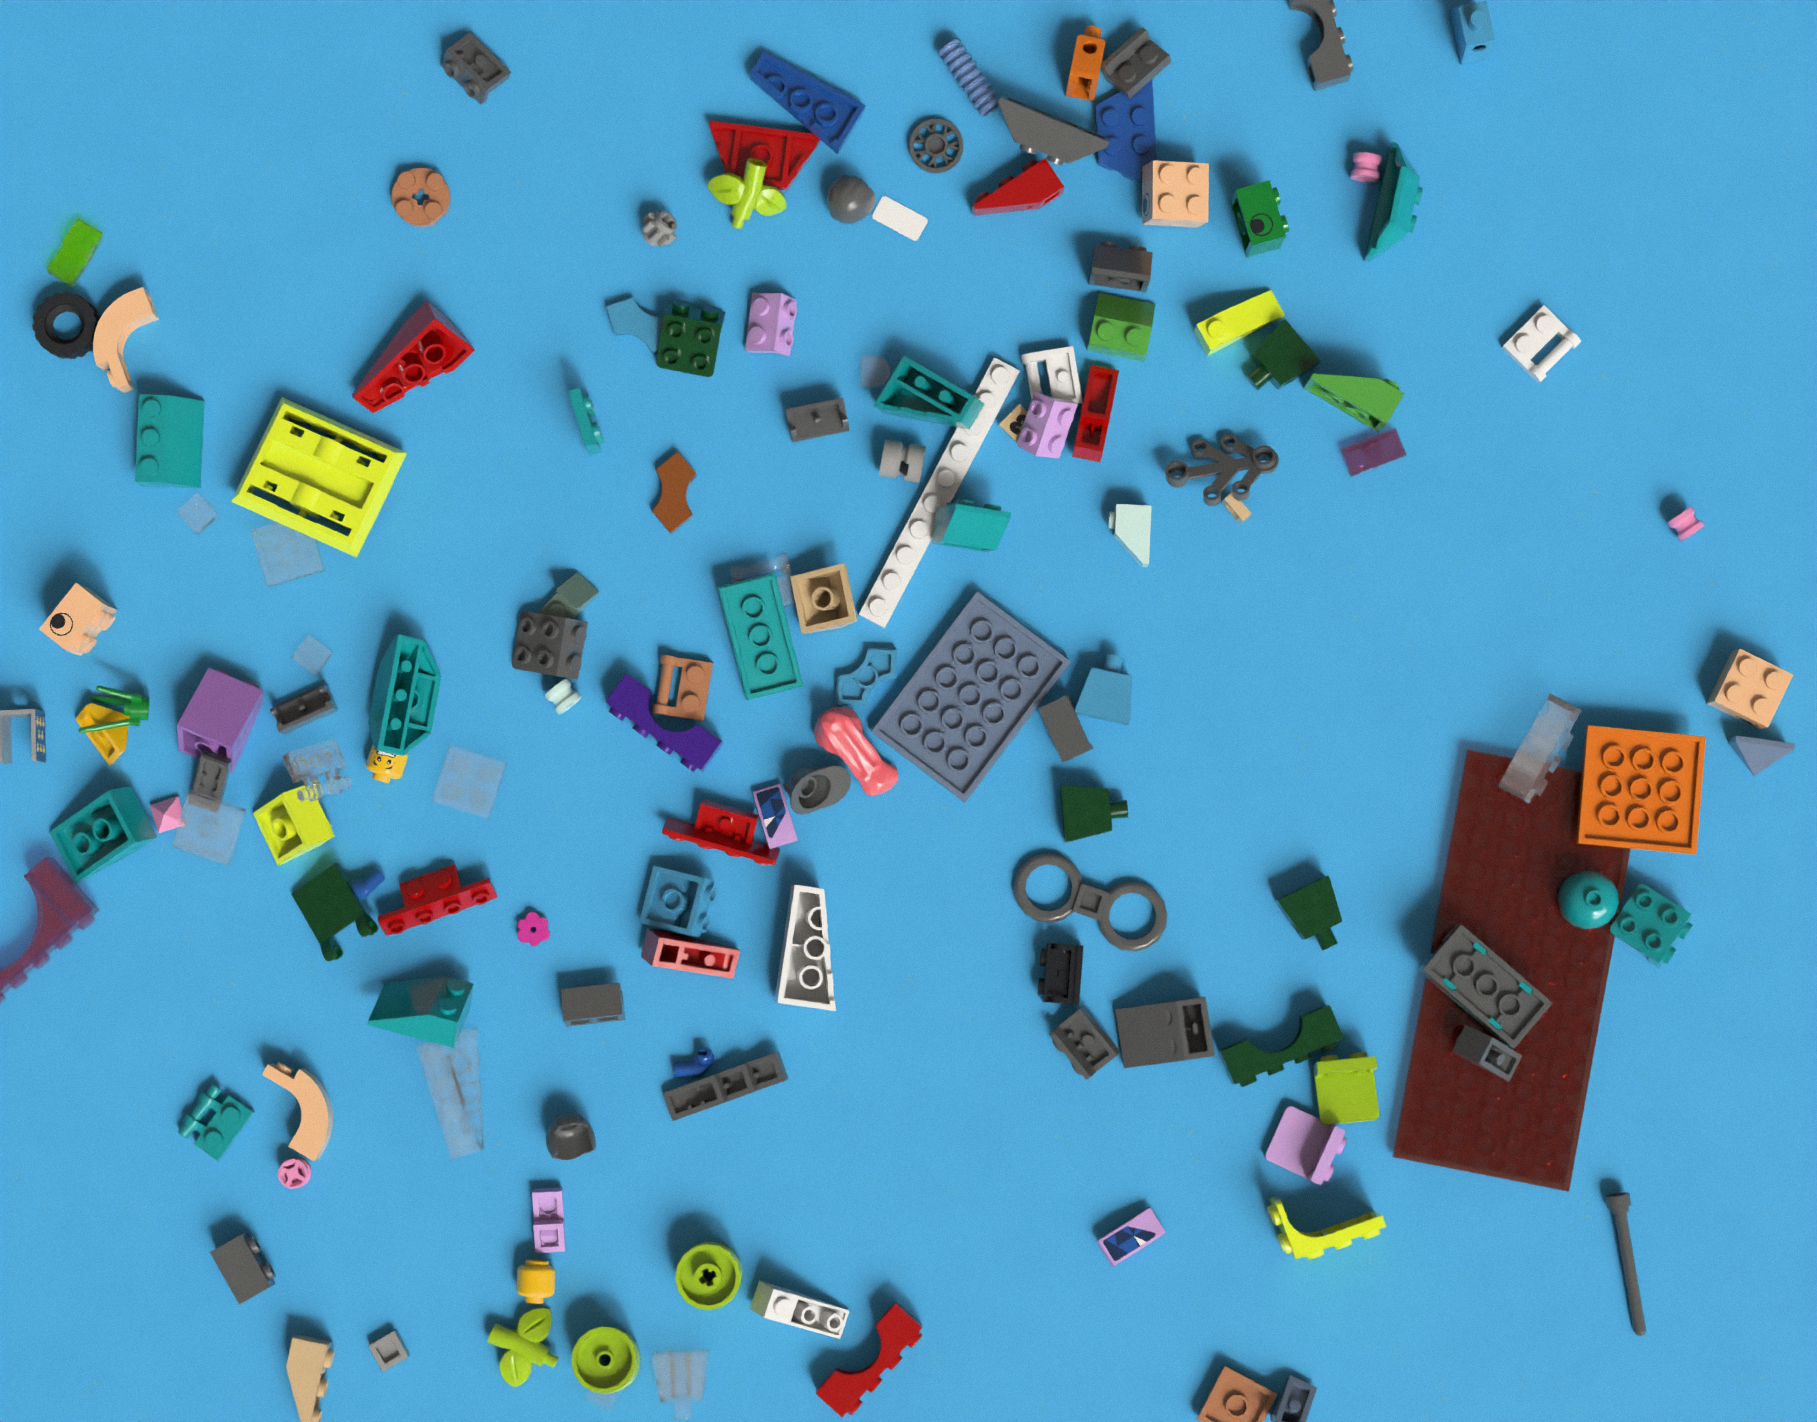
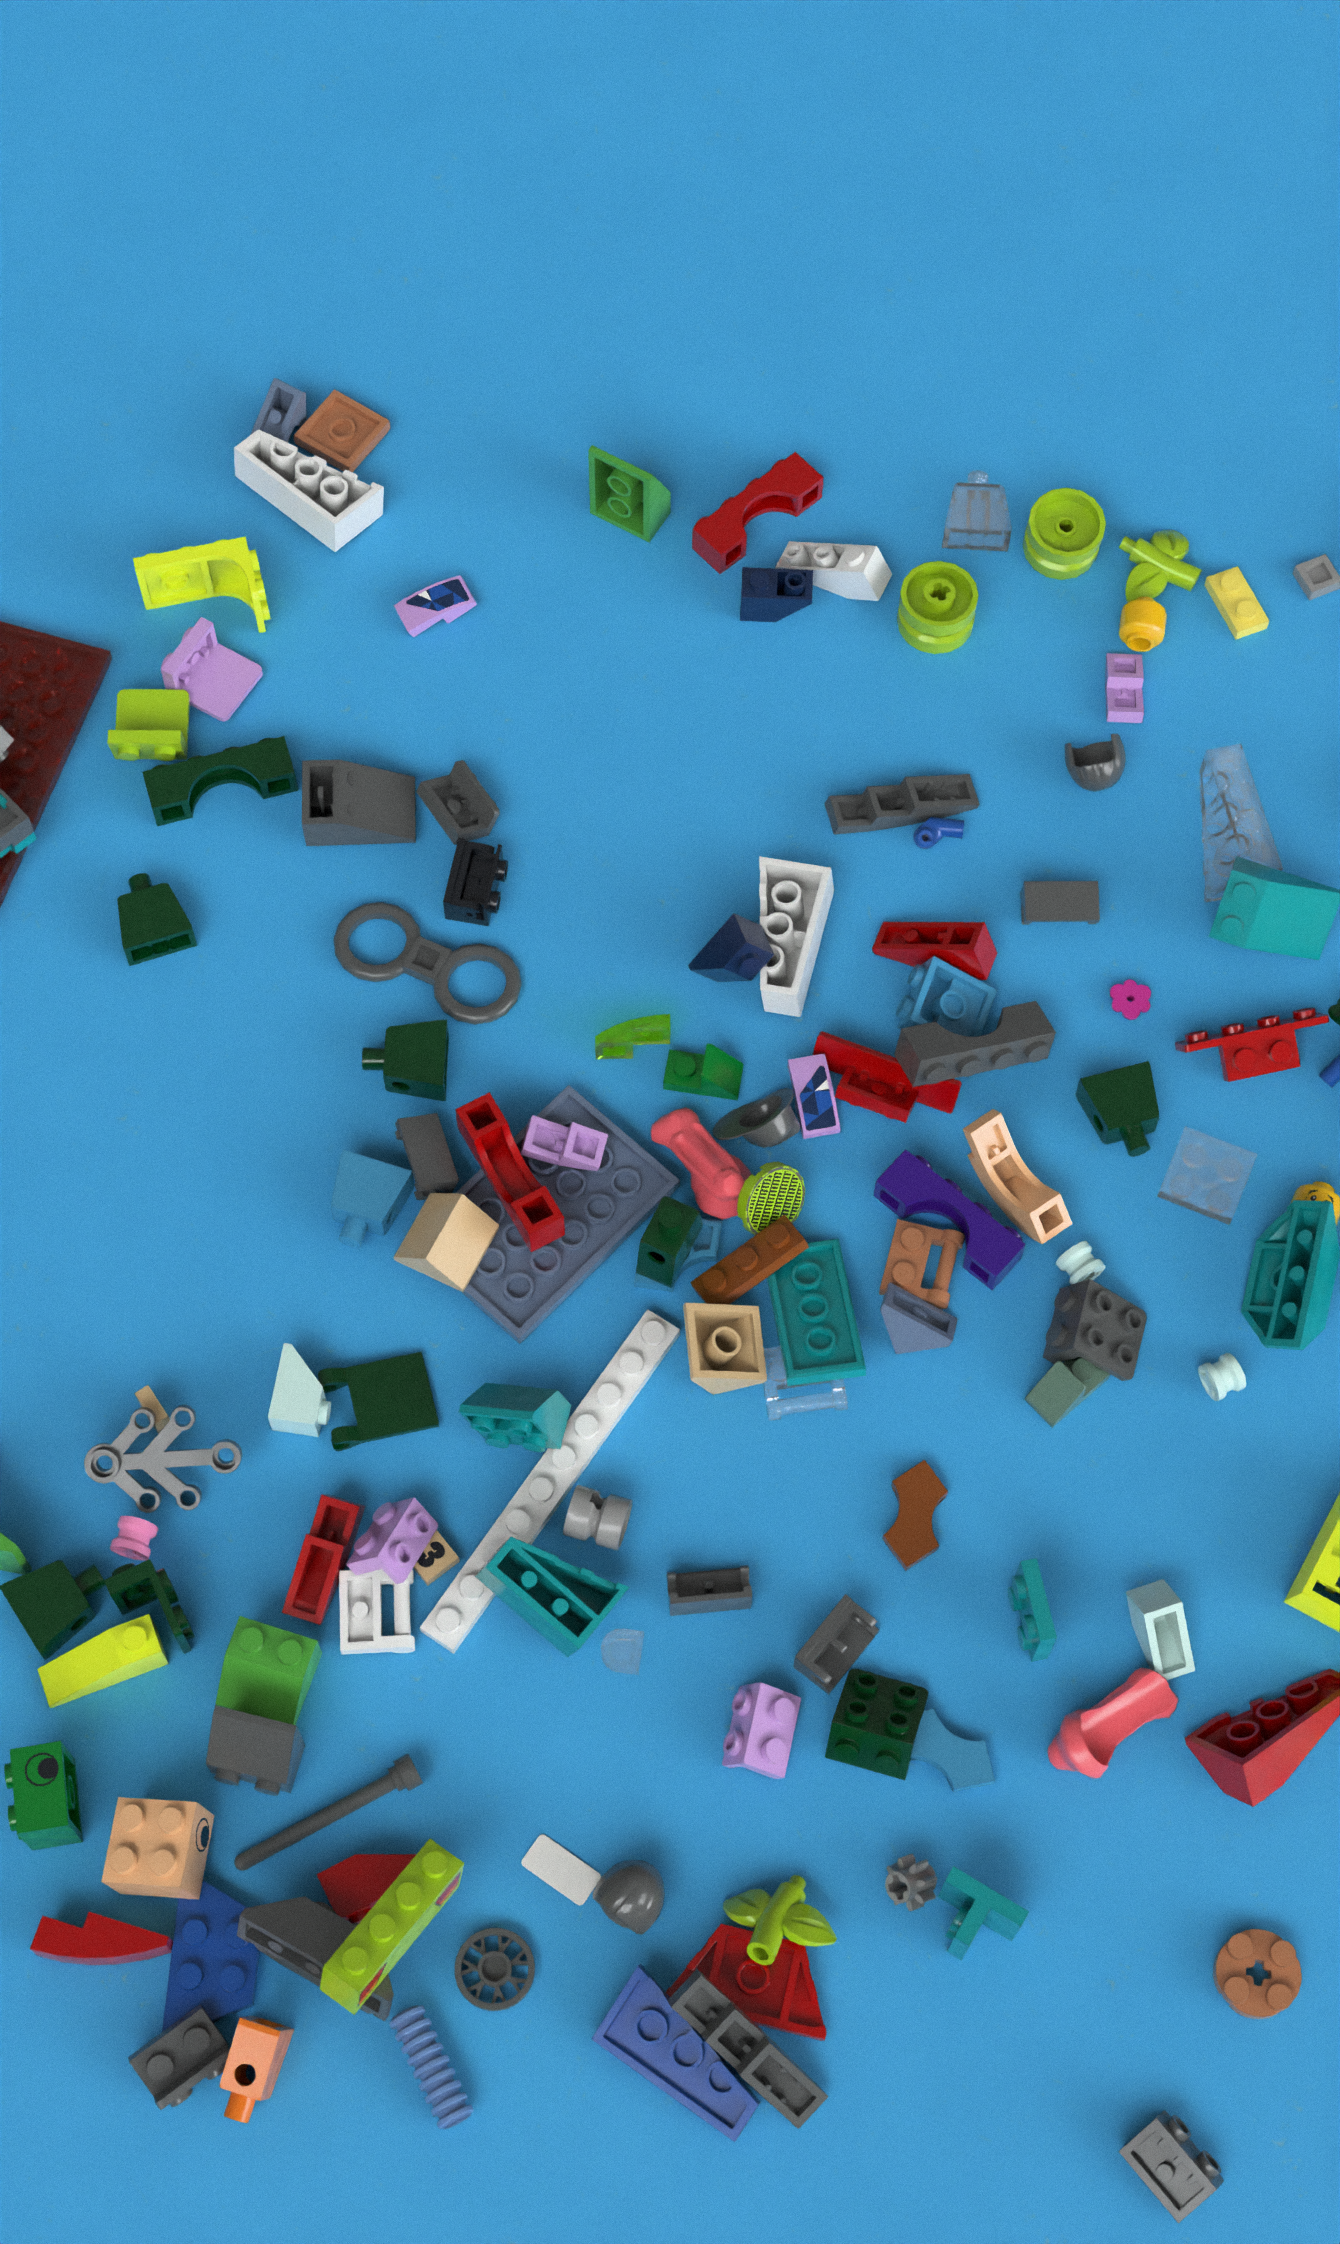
camera: 175 degrees left, 20 degrees down
(454, 618) = (1222, 1376): none -> light aqua wheel
(457, 1316) = (1236, 602): none -> light yellow plate
(494, 424) = (1161, 1629): none -> light aqua slope
(535, 831) = (1121, 1106): none -> dark green torso
(540, 341) = (1091, 1734): none -> coral hair
(614, 209) = (976, 1907): none -> teal bracket
(614, 754) = (1010, 1183): none -> light nougat arch
(683, 638) = (914, 1322): none -> sand blue slope
(684, 847) = (935, 1054): none -> dark grey arch
(724, 389) = (836, 1644): none -> dark grey hinge
(760, 108) = (747, 2049): none -> dark grey slope
(799, 717) = (770, 1195): none -> tile
(811, 668) = (750, 1263): none -> dark orange plate
(845, 1274) = (774, 593): none -> dark blue slope
(846, 920) = (734, 952): none -> dark blue slope
(862, 827) = (700, 1074): none -> green slope
(872, 676) = (670, 1235): none -> dark green torso
(927, 846) = (619, 1040): none -> clear neon green slope
(962, 748) = (562, 1145): none -> lavender slope
(979, 1358) = (626, 495): none -> bright green slope
(998, 712) = (496, 1152): none -> red arch
(1005, 144) = (391, 1926): none -> lime brick
(1017, 266) = (400, 1776): none -> dark grey piece
(1041, 659) = (447, 1239): none -> tan slope
(1068, 541) = (386, 1397): none -> dark green flag
(1203, 132) = (98, 1942): none -> red slope
(1205, 372) = (140, 1585): none -> dark green bracket
(1233, 412) = (134, 1538): none -> bright pink wheel
(1248, 1331) = (308, 491): none -> white wedge

